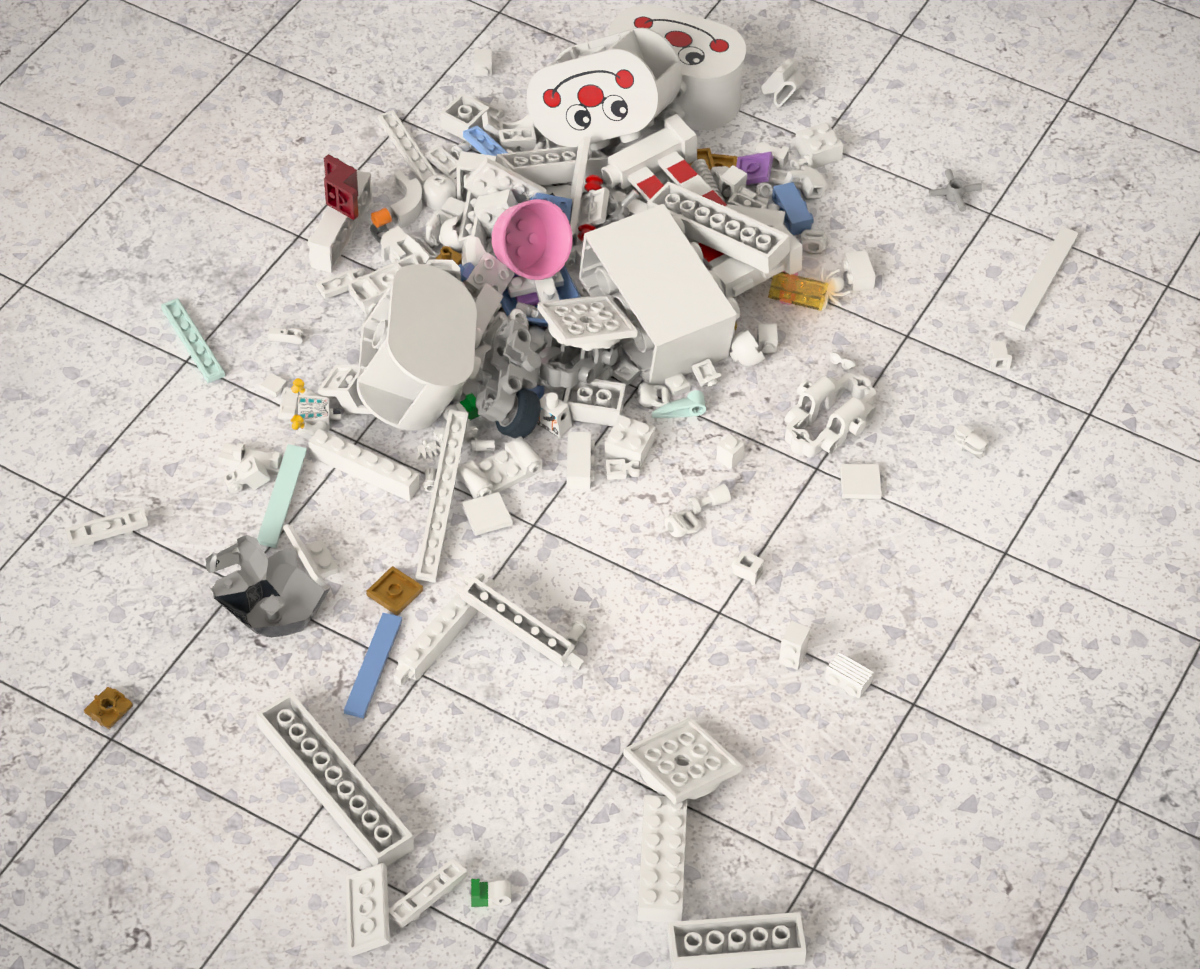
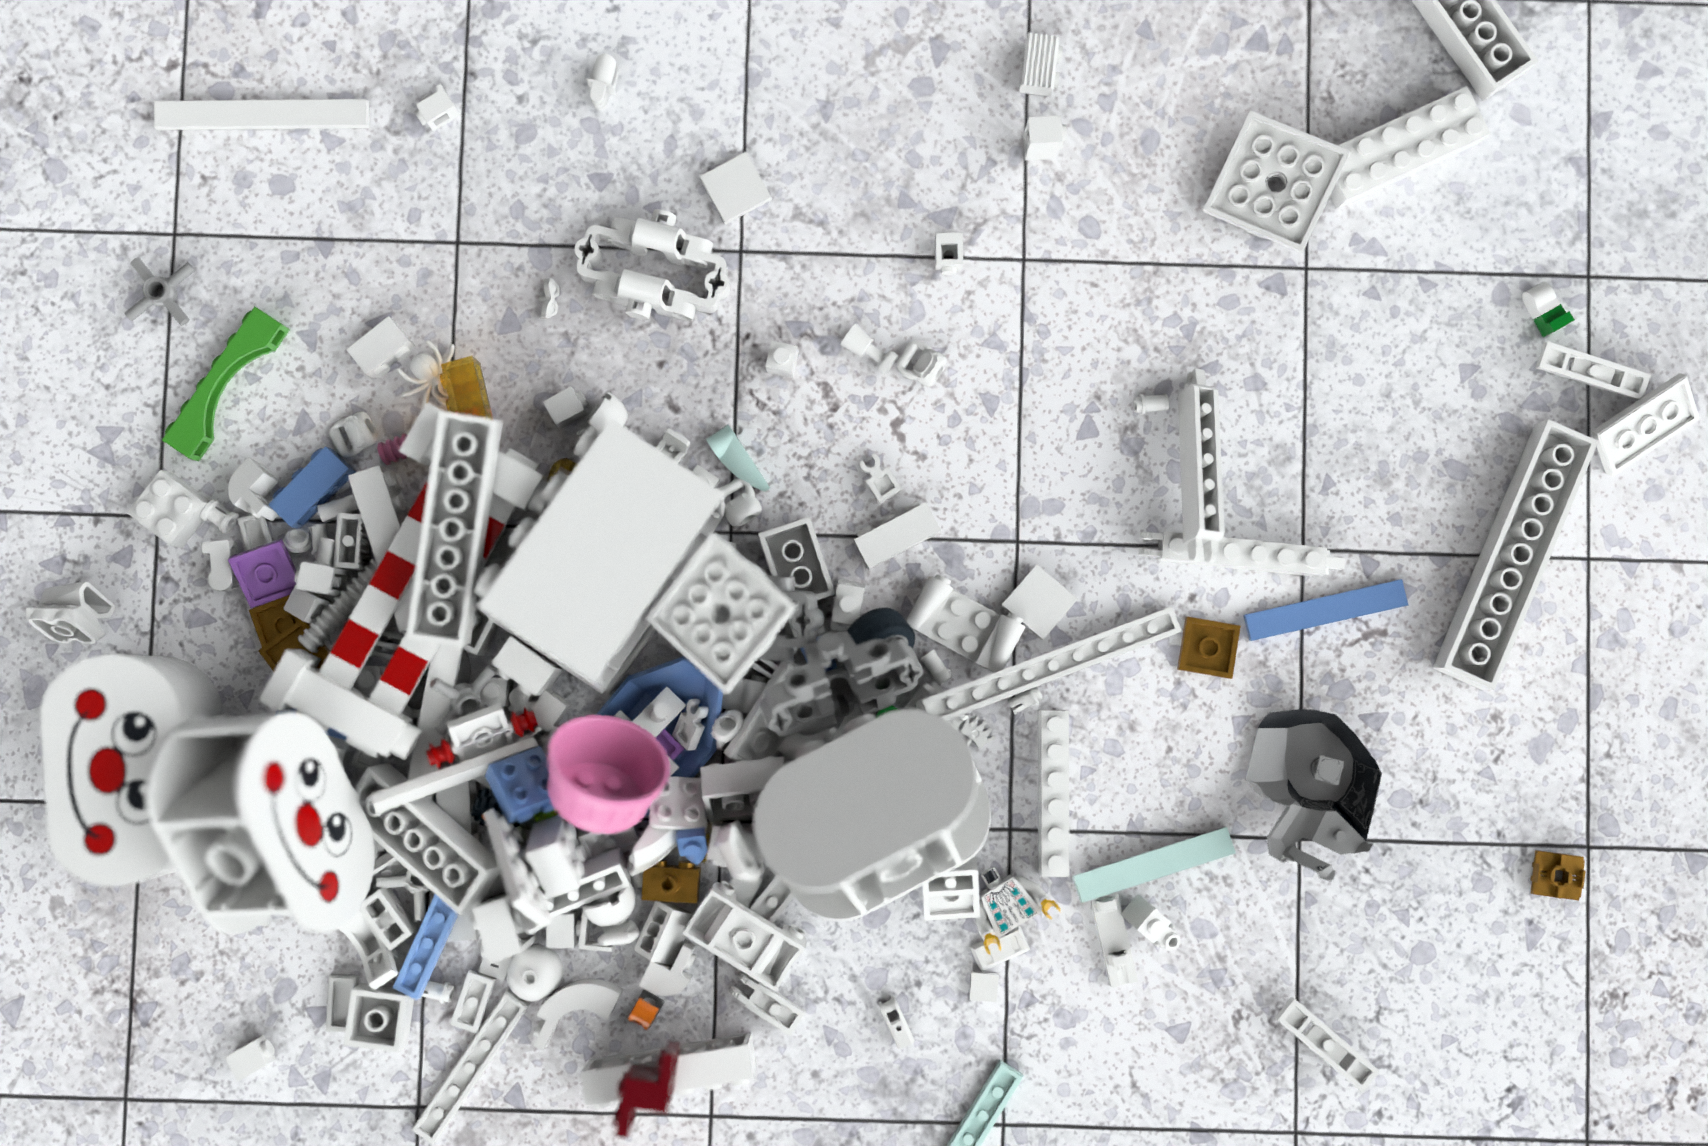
camera: 120 degrees left, 35 degrees up
(314, 556) = (1227, 770): white plate -> none
(629, 440) = (834, 488): white brick -> none
(862, 174) = (194, 427): none -> bright green arch

